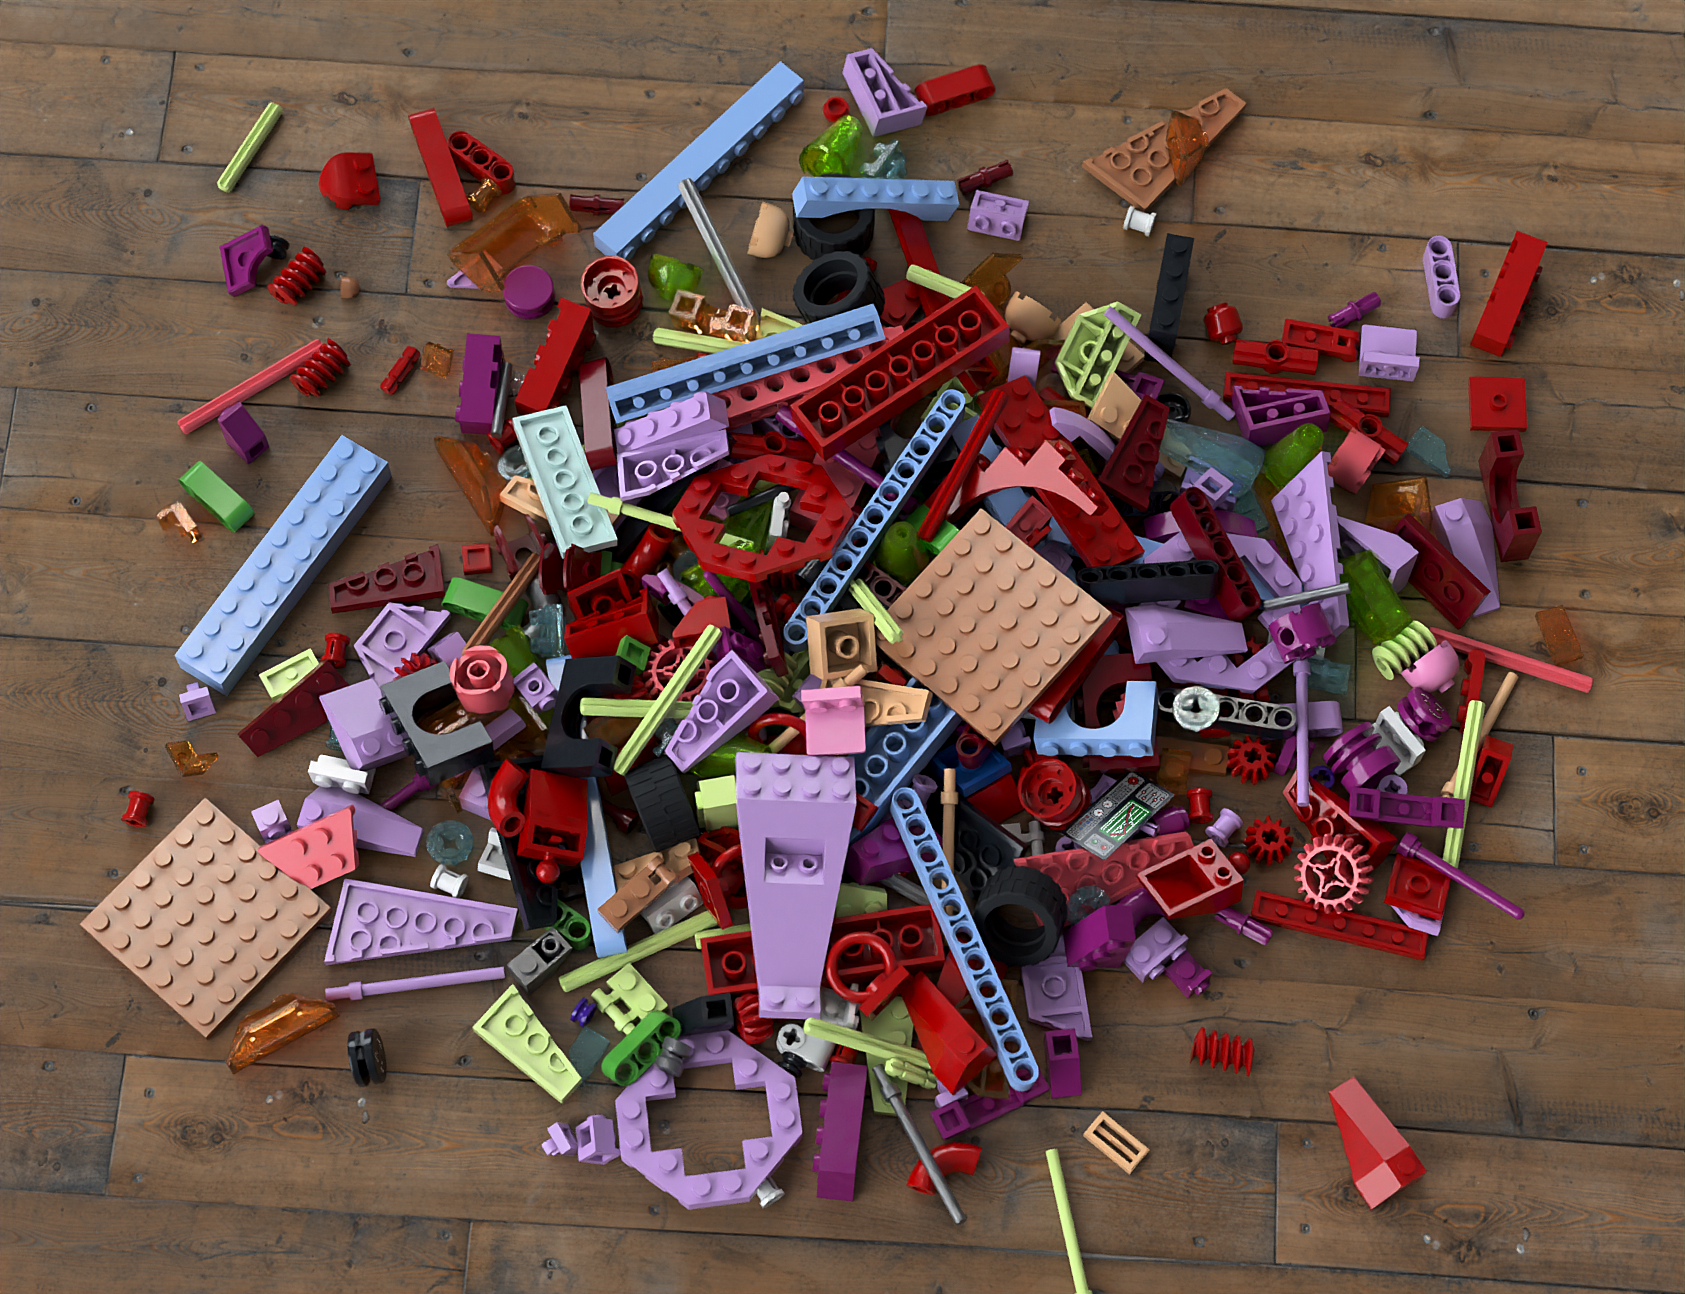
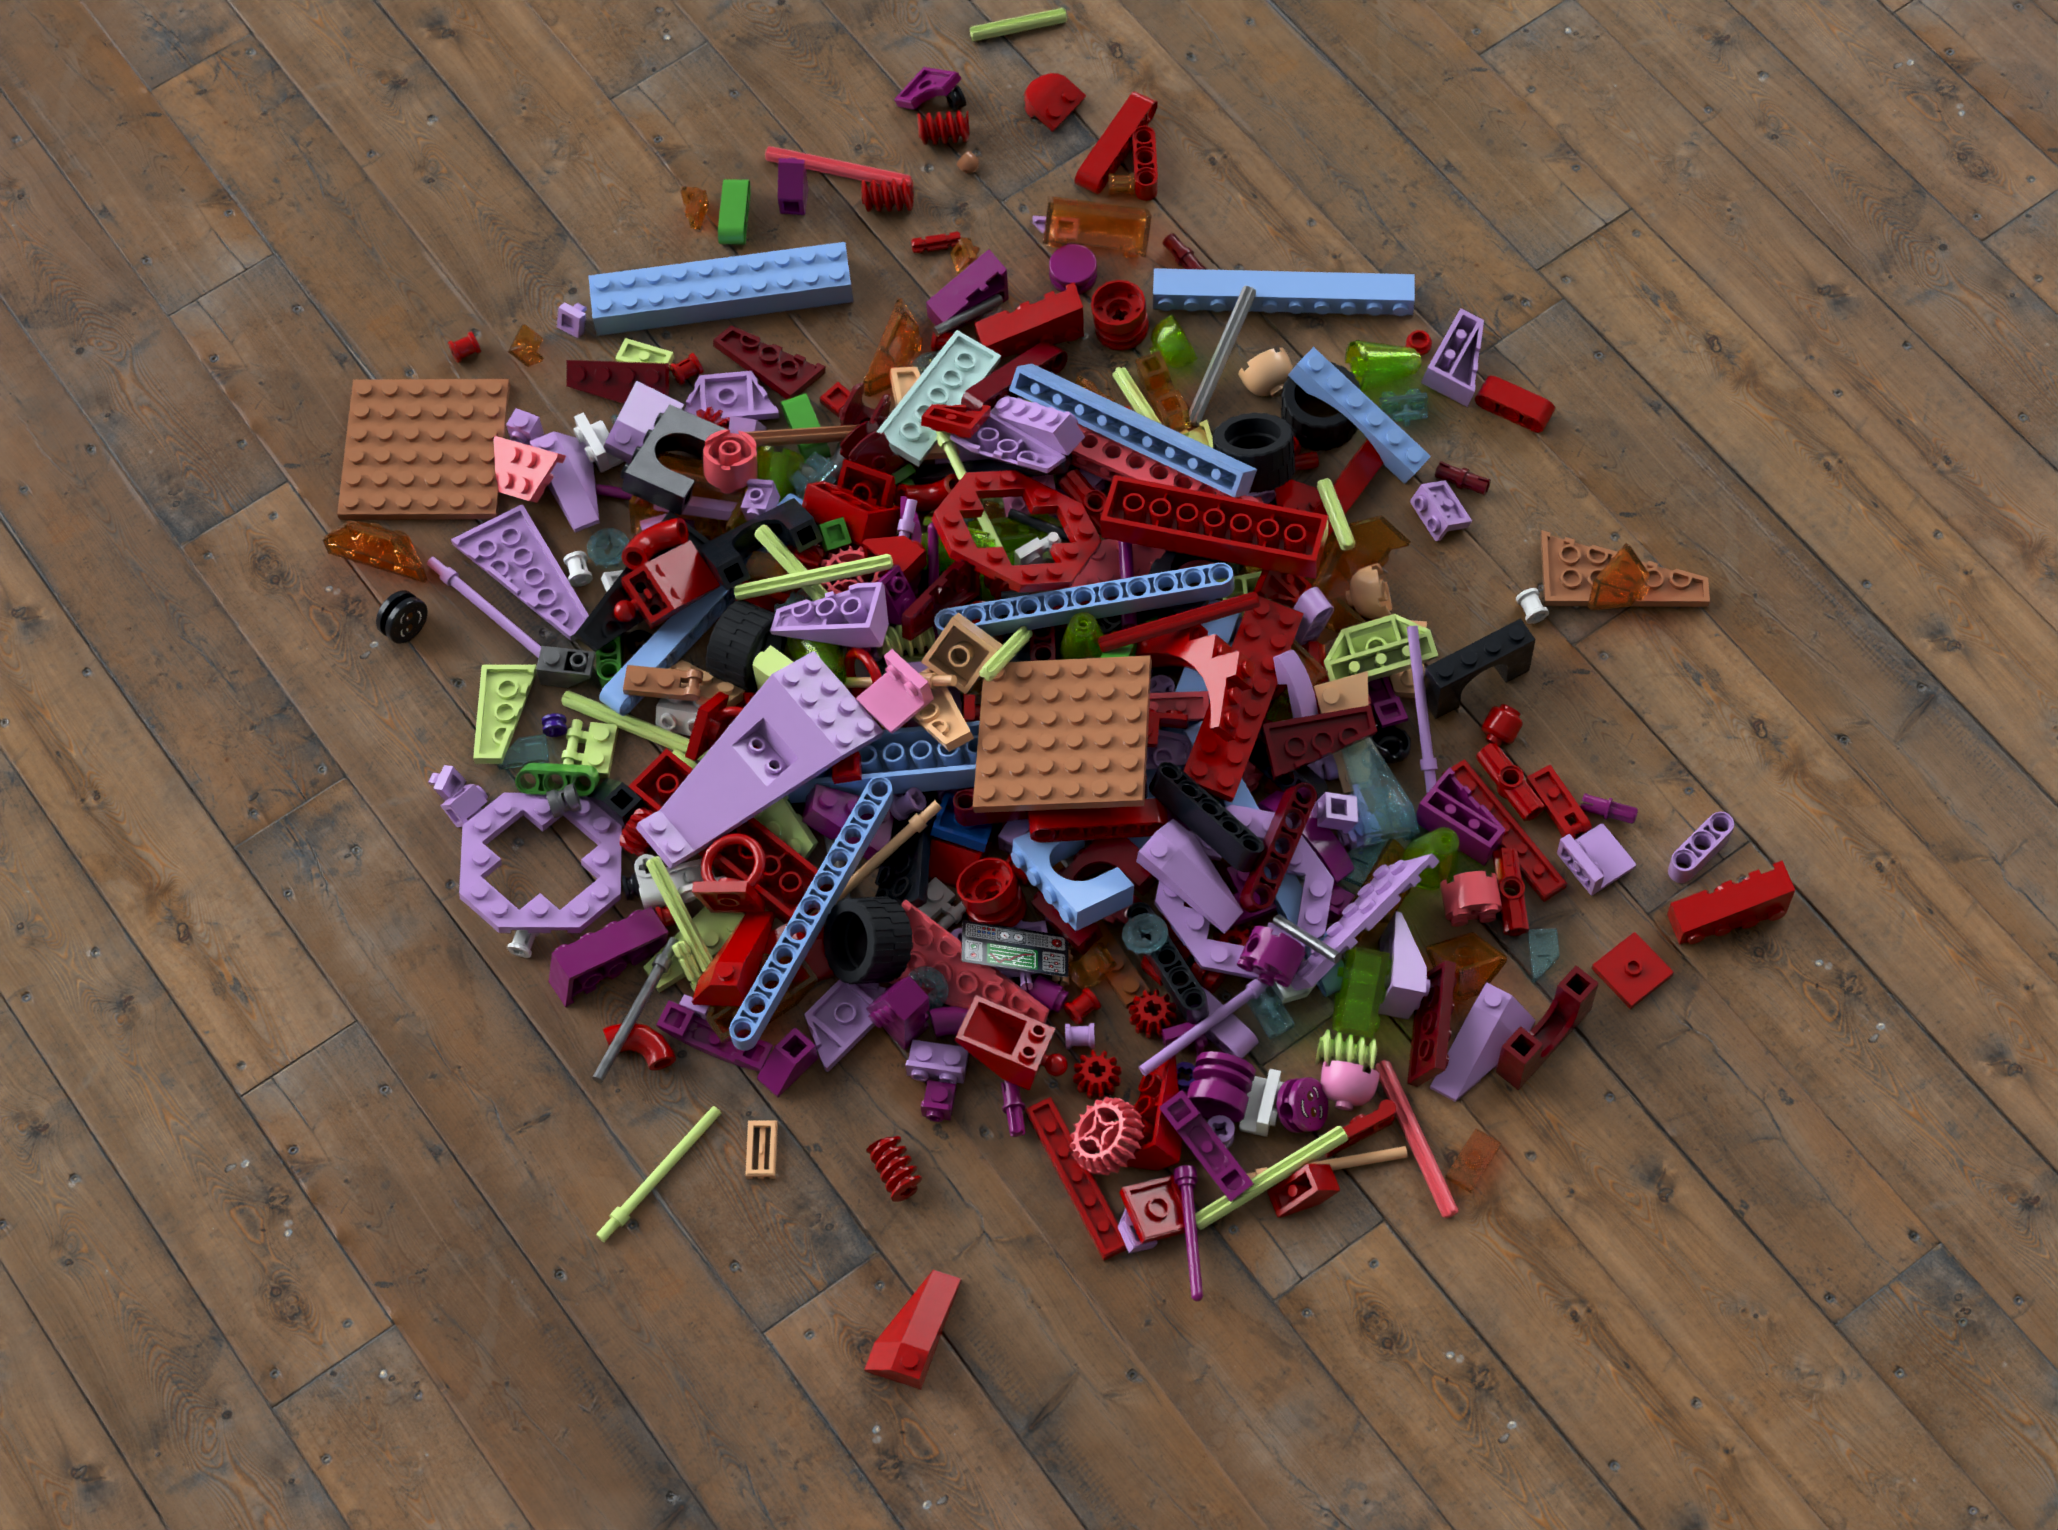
camera: 55 degrees right, 5 degrees down
(612, 481) = (955, 419): none -> red wing

